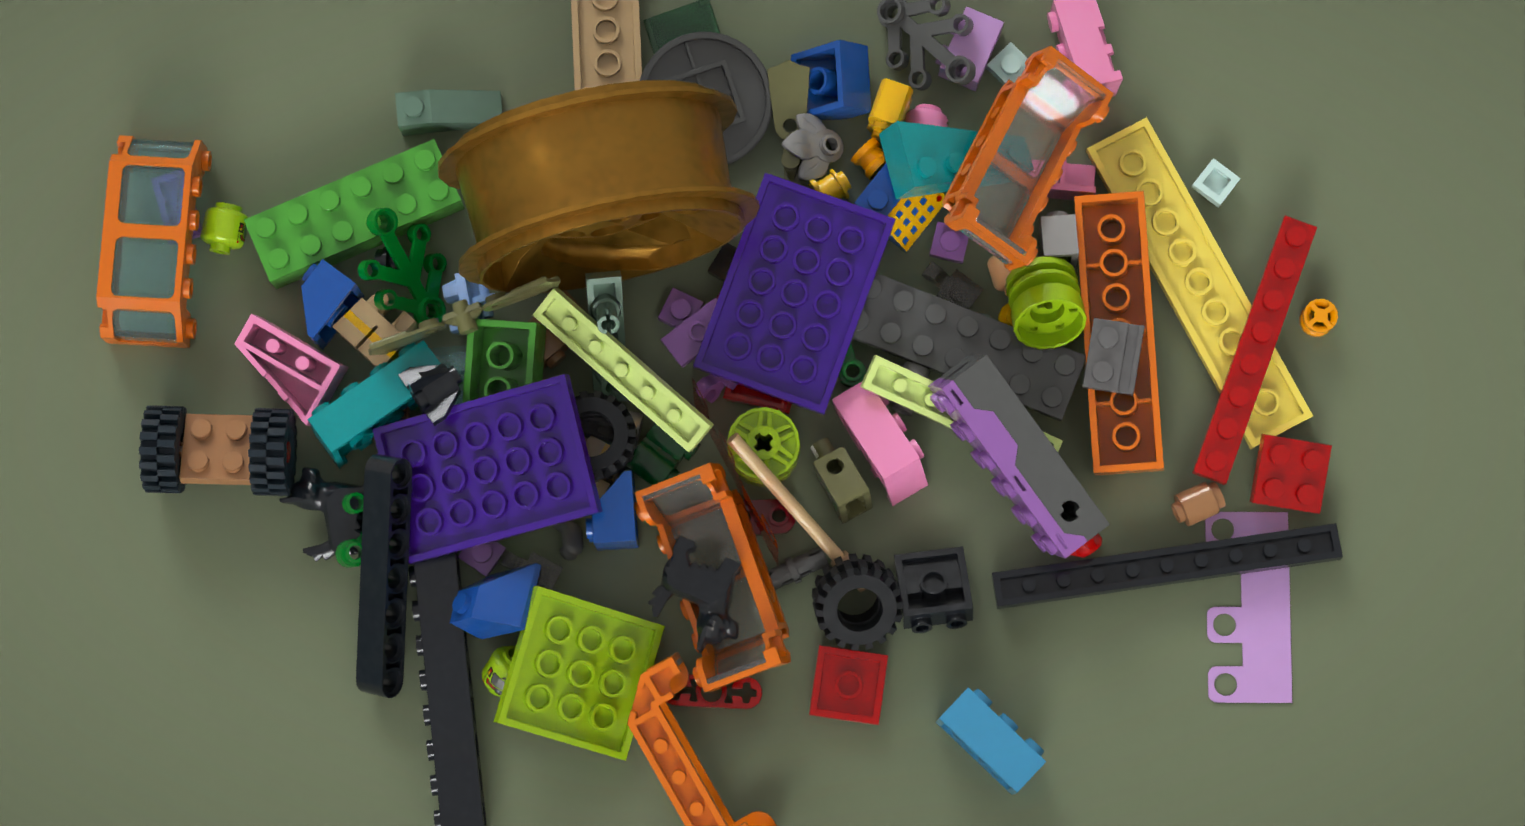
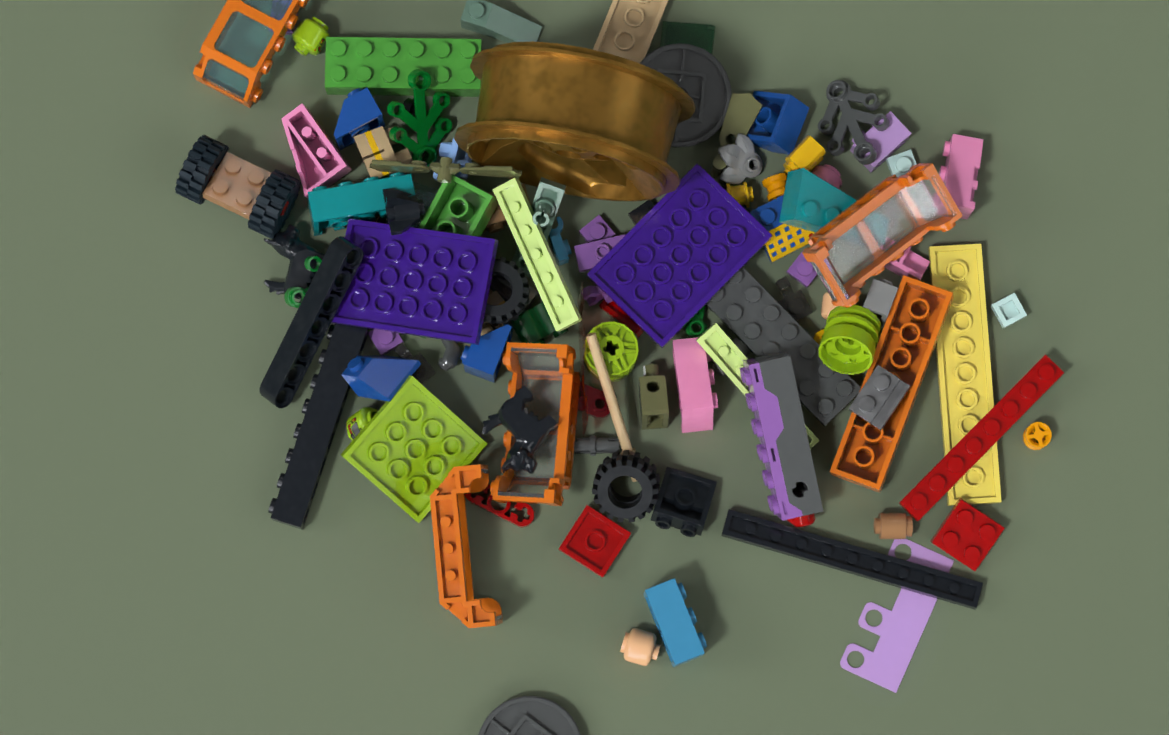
camera: 20 degrees right, 0 degrees up
(644, 348) = (560, 247): none -> dark azure plate
(961, 788) = (640, 647): none -> light nougat head

